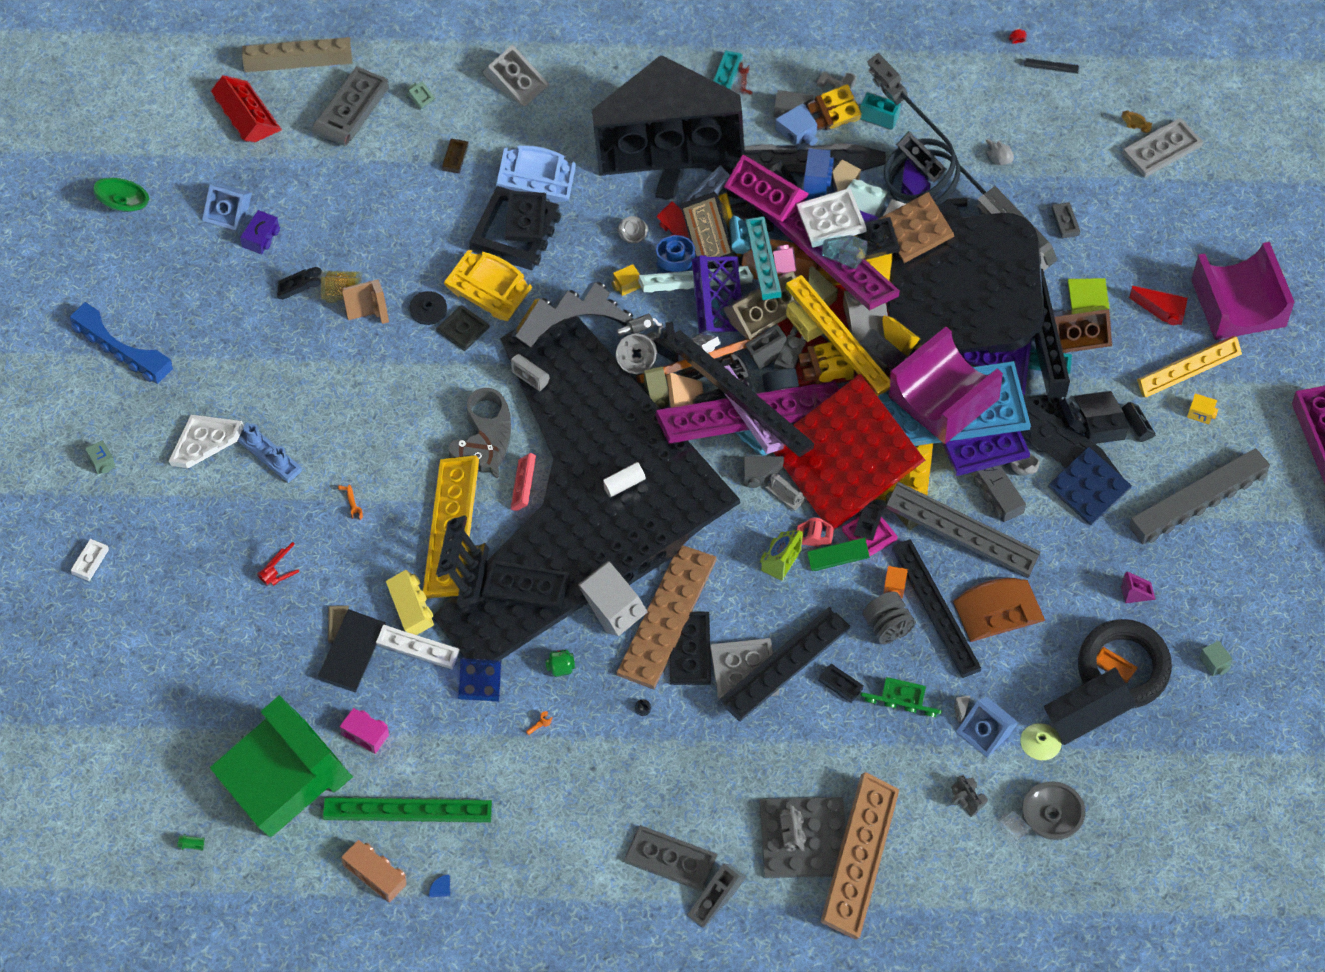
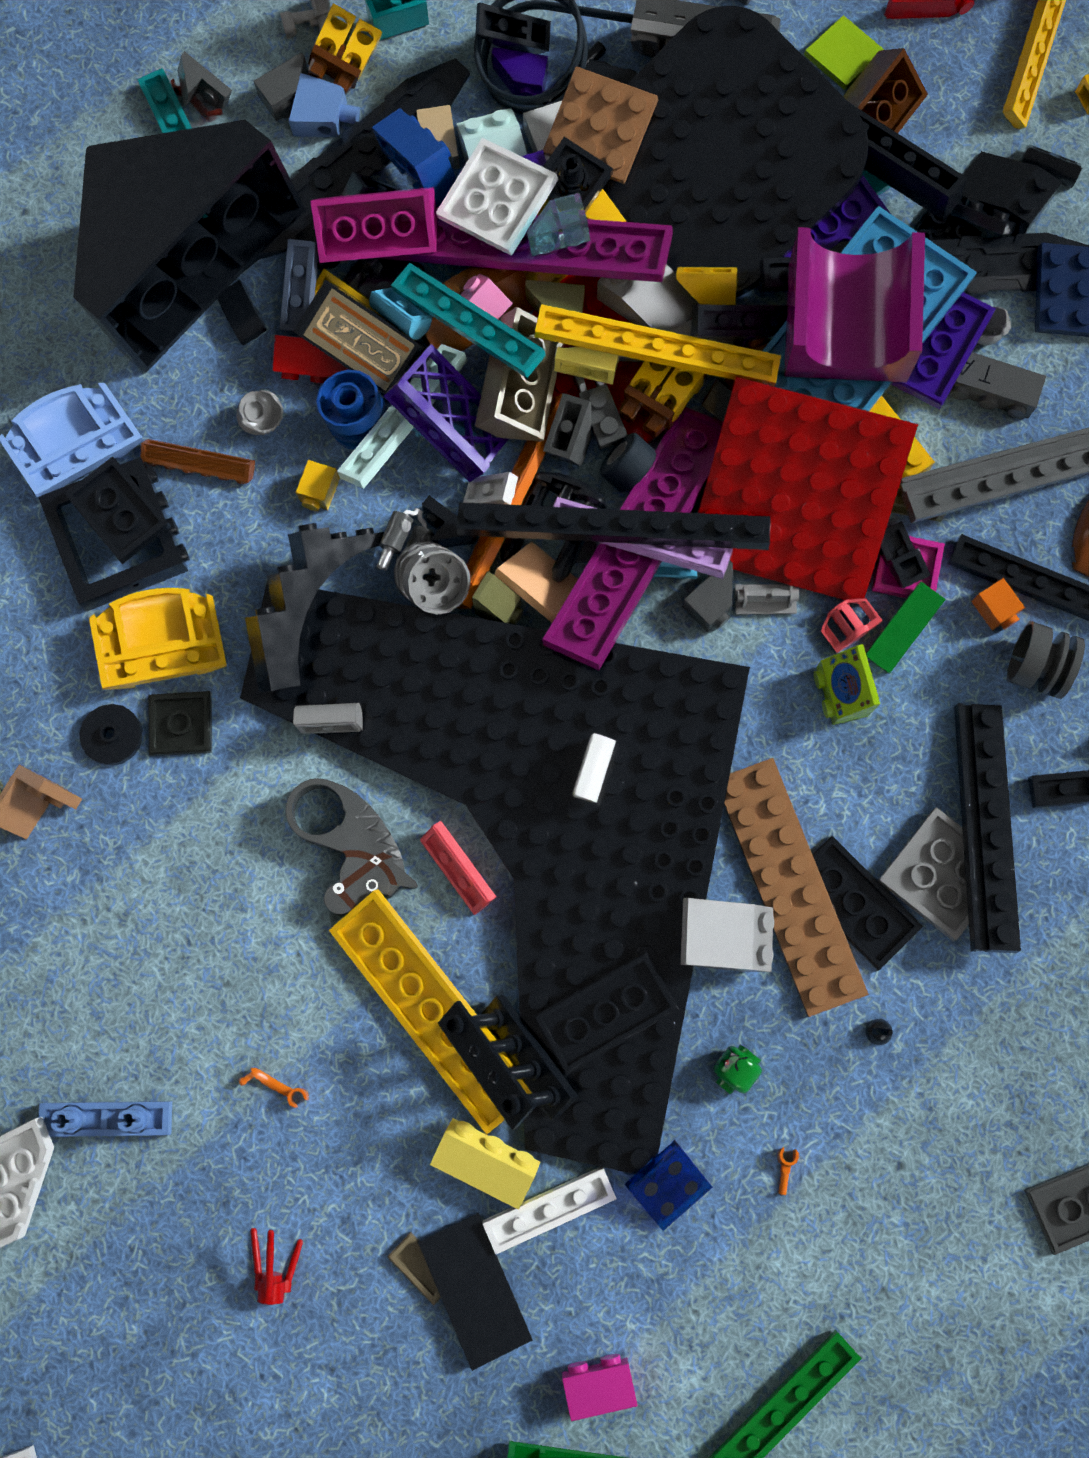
camera: 40 degrees left, 20 degrees up
(582, 227) = (197, 460): none -> dark orange piece
(752, 71) = (197, 79): none -> dark grey slope

